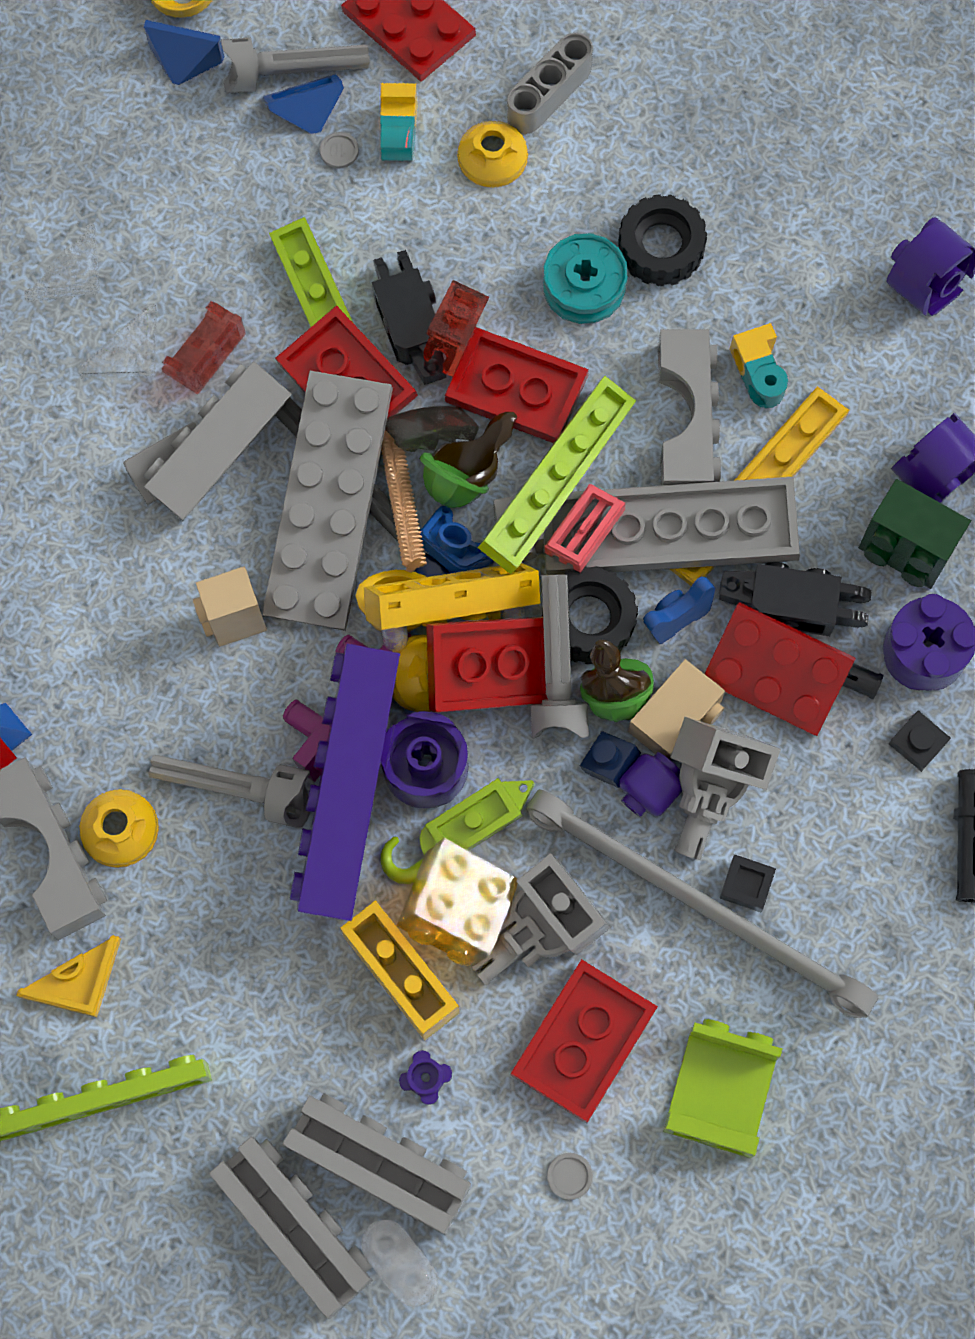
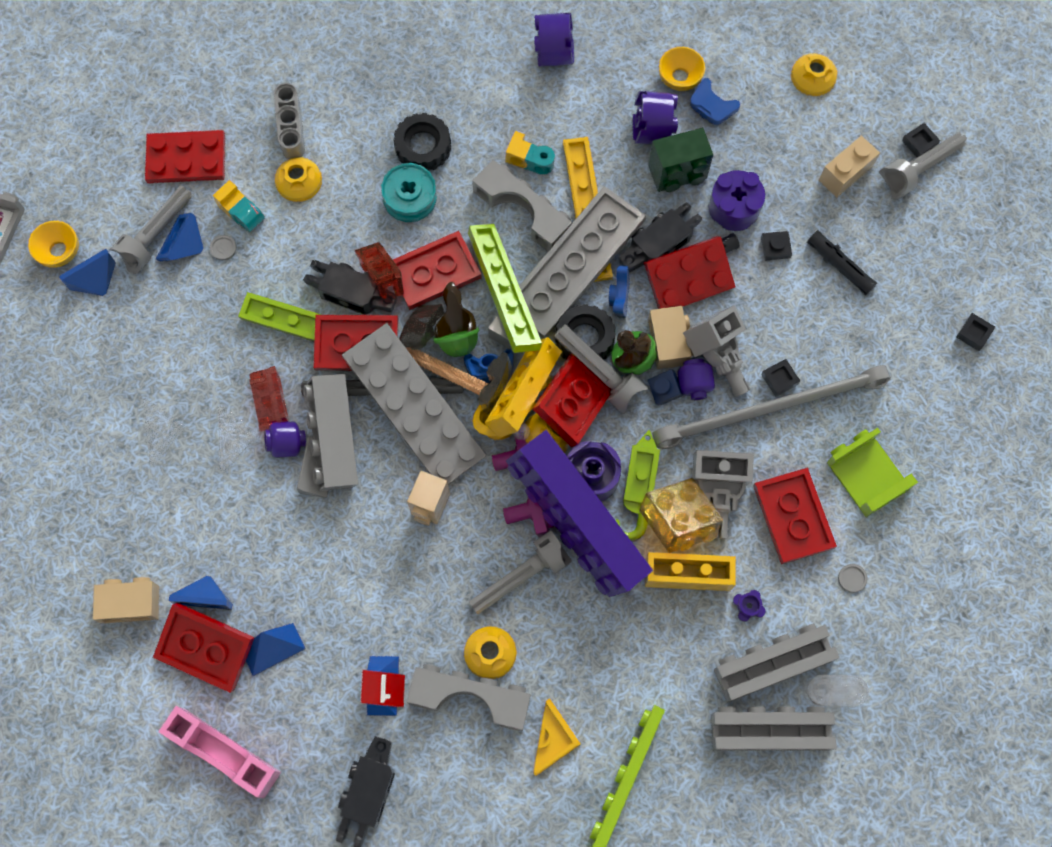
camera: 50 degrees left, 0 degrees up
(169, 401) = (284, 439): none -> dark purple head
(444, 556) = (499, 374): none -> clear smoke slope
(567, 554) = (548, 318): coral tile -> none

